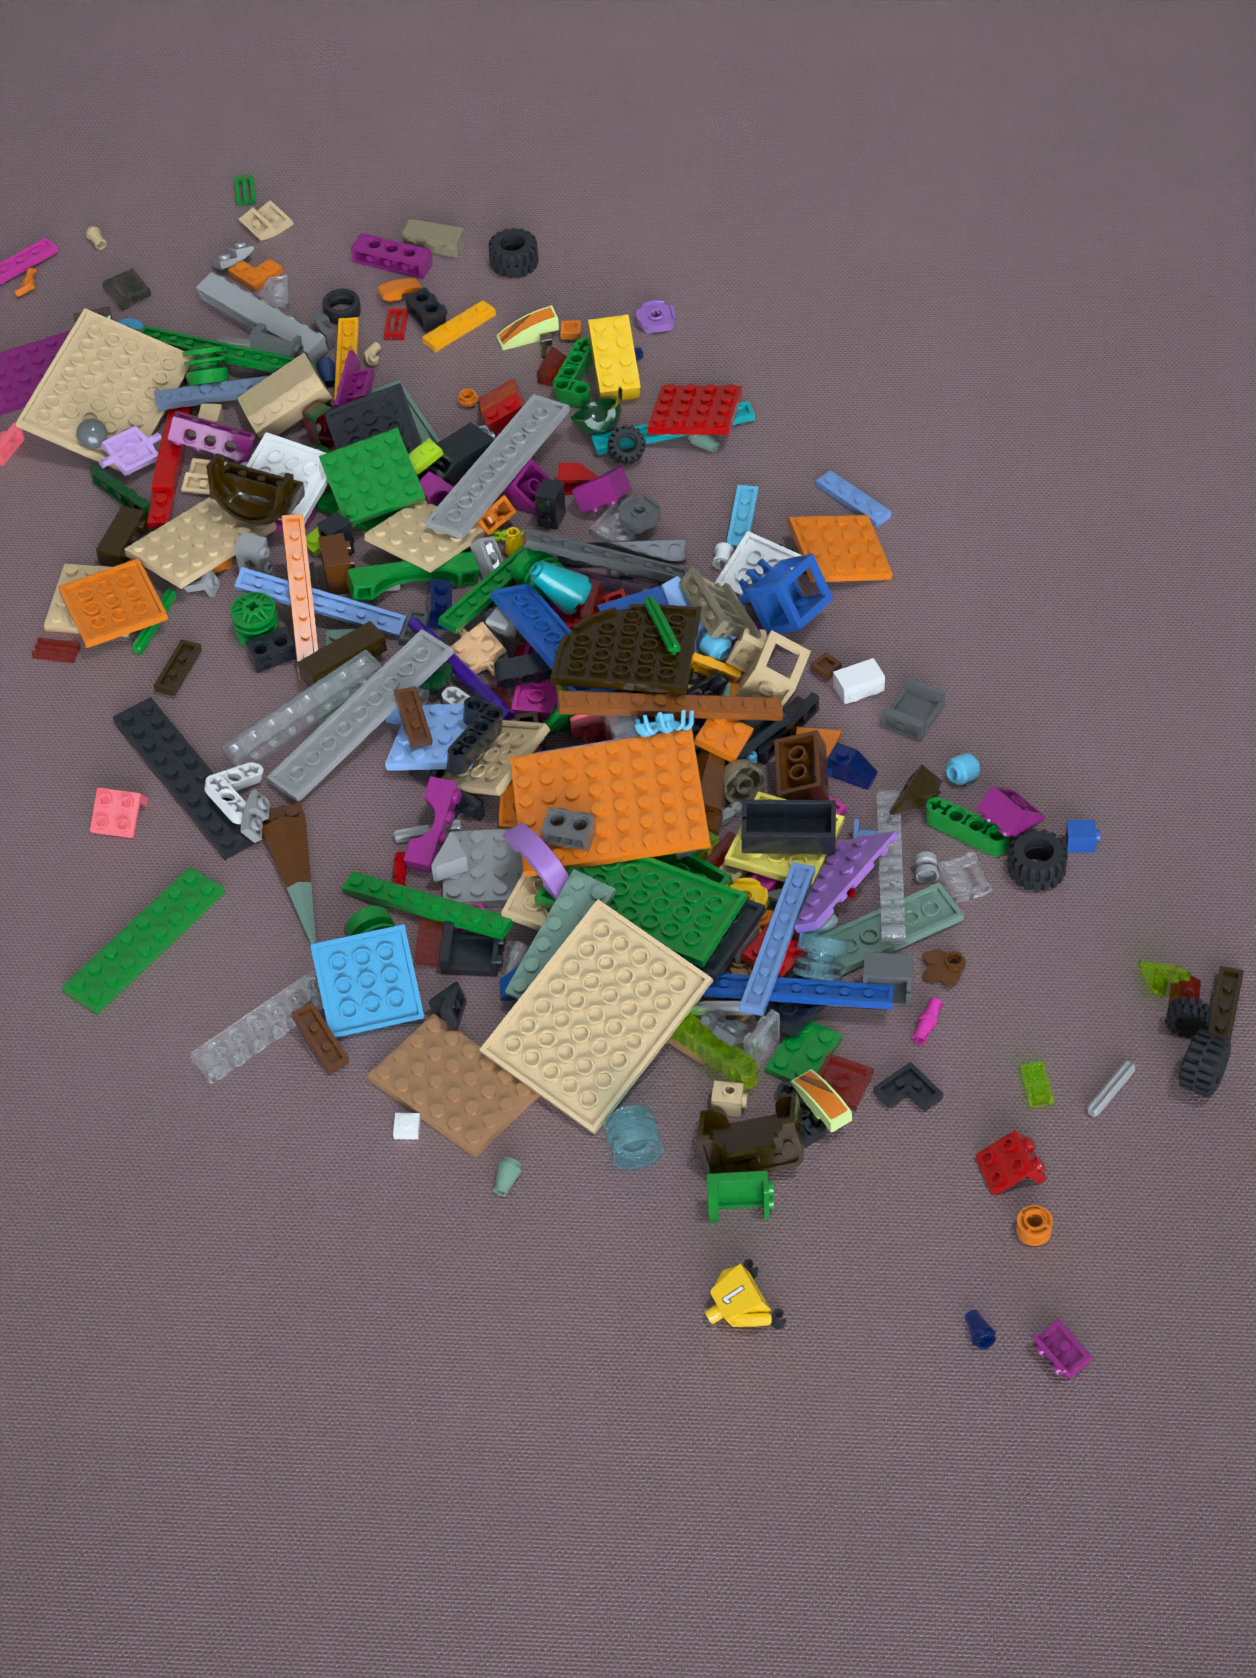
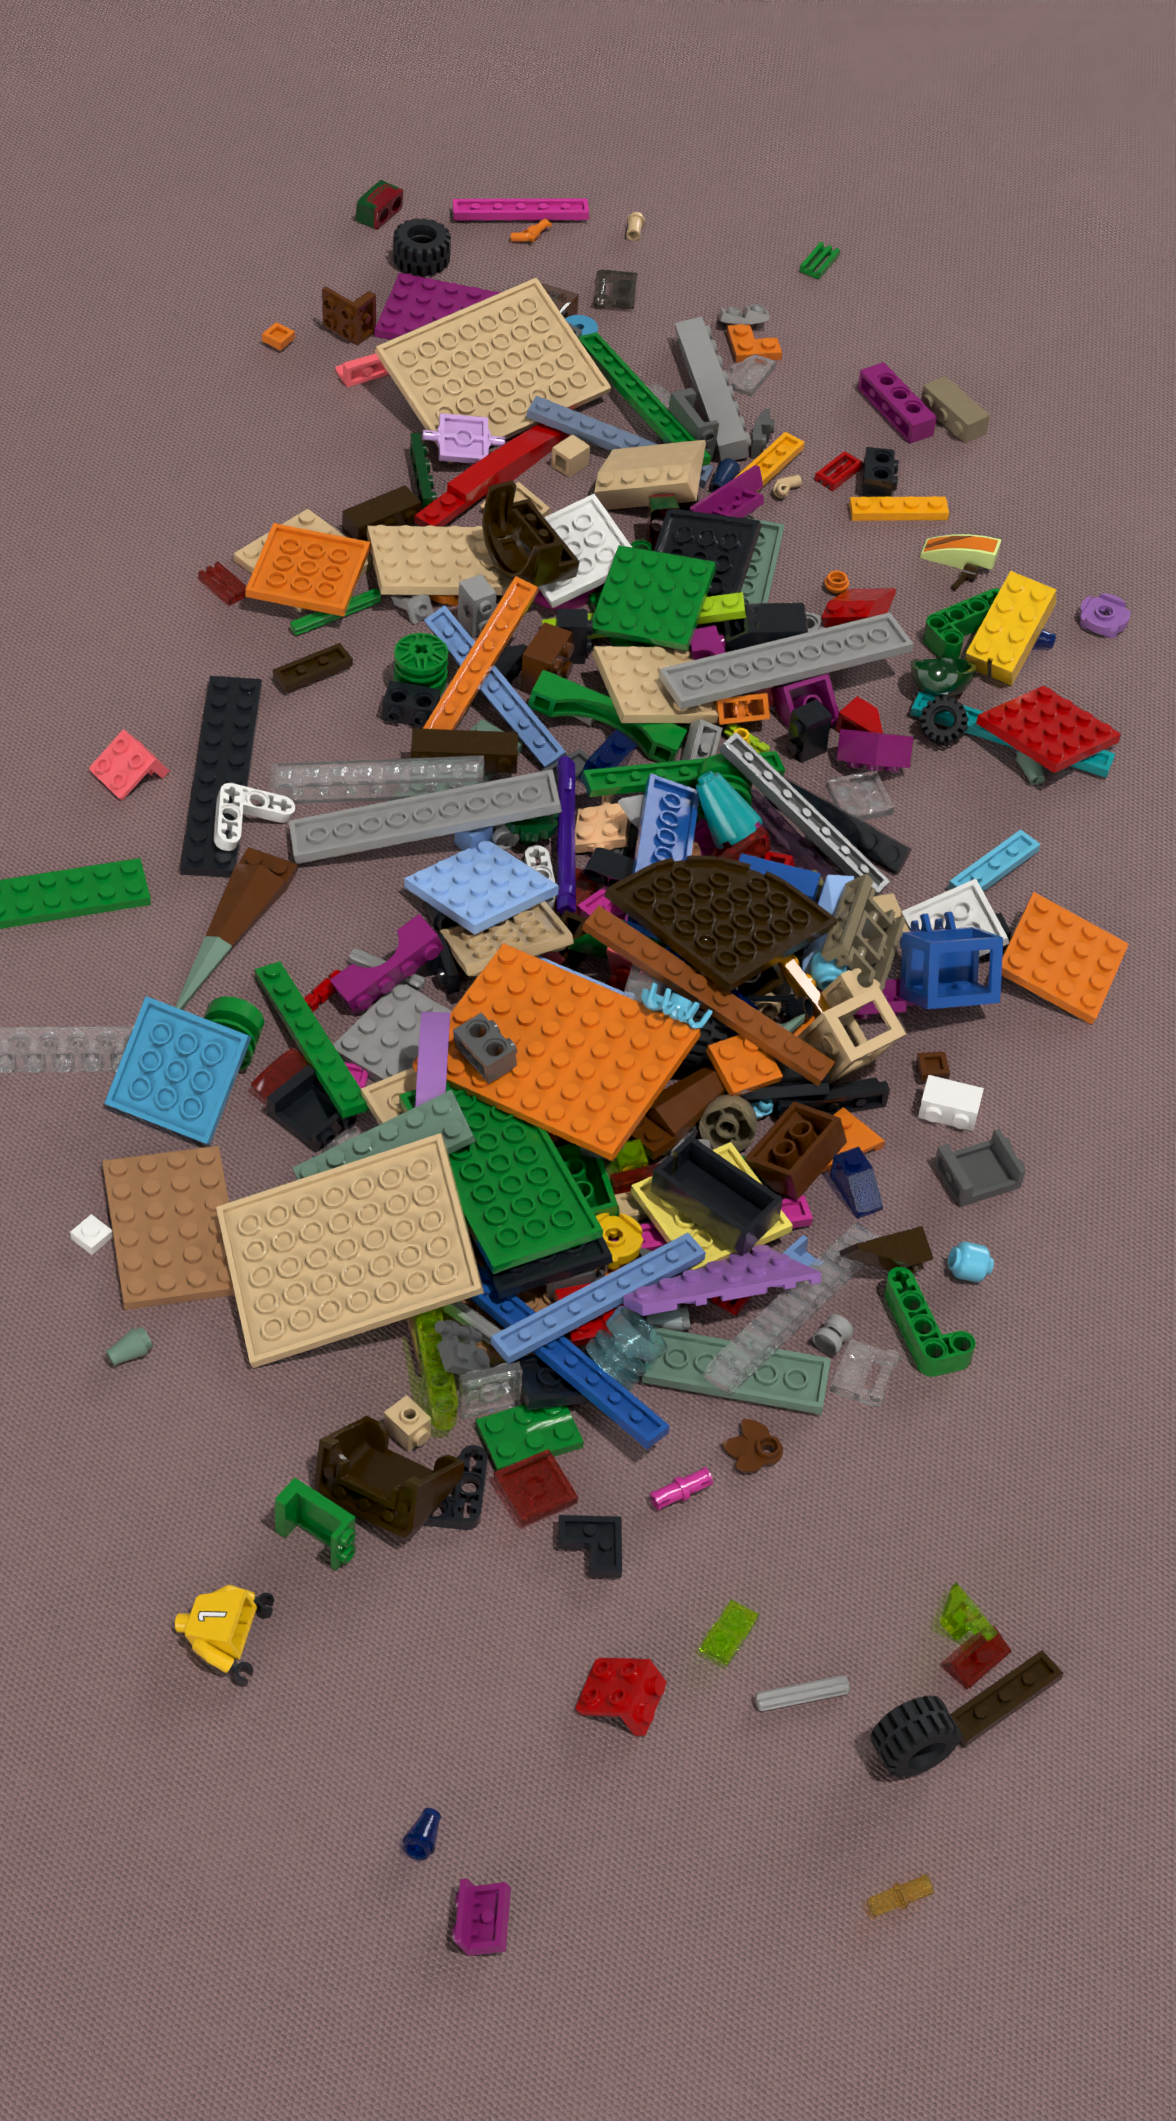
camera: 30 degrees right, 0 degrees up
(91, 433) = (438, 399): dark grey hair -> none
(205, 365) = (608, 400): green wheel -> none
(223, 433) = (526, 439): magenta brick -> none
(254, 813) = (236, 846): light grey slope -> none
(266, 221) = (808, 302): tan slope -> none
(320, 1038) = (91, 1095): reddish brown plate -> none
(341, 296) = (803, 411): black tyre -> none
(394, 289) = (865, 435): orange slope -> none
(413, 717) = (463, 848): reddish brown plate -> none
(449, 1005) = (238, 1147): black slope -> none
(450, 859) = (370, 1007): light grey slope -> none
(483, 724) = (501, 905): black beam -> none
(513, 253) = (1018, 468): black tyre -> none
(550, 367) = (947, 597): clear red slope -> none
(570, 330) = (999, 574): orange plate -> none
(633, 1137) = (274, 1394): clear light blue wheel -> none
(639, 522) = (889, 806): dark grey plate -> none
(662, 625) = (772, 910): green axle -> none
(723, 554) = (938, 886): white bush -> none
(822, 1100) = (490, 1490): slope -> none
(853, 498) = (1131, 918): medium blue plate -> none
(890, 970) = (683, 1411): dark grey piece -> none
(1009, 811) = (966, 1334): magenta slope -> none
(1037, 846) = (959, 1387): black tyre -> none
(1037, 1216) = (583, 1758): orange wheel -> none
(1081, 836) = (1028, 1414): blue brick -> none
(1188, 1016) = (950, 1677): black tyre -> none

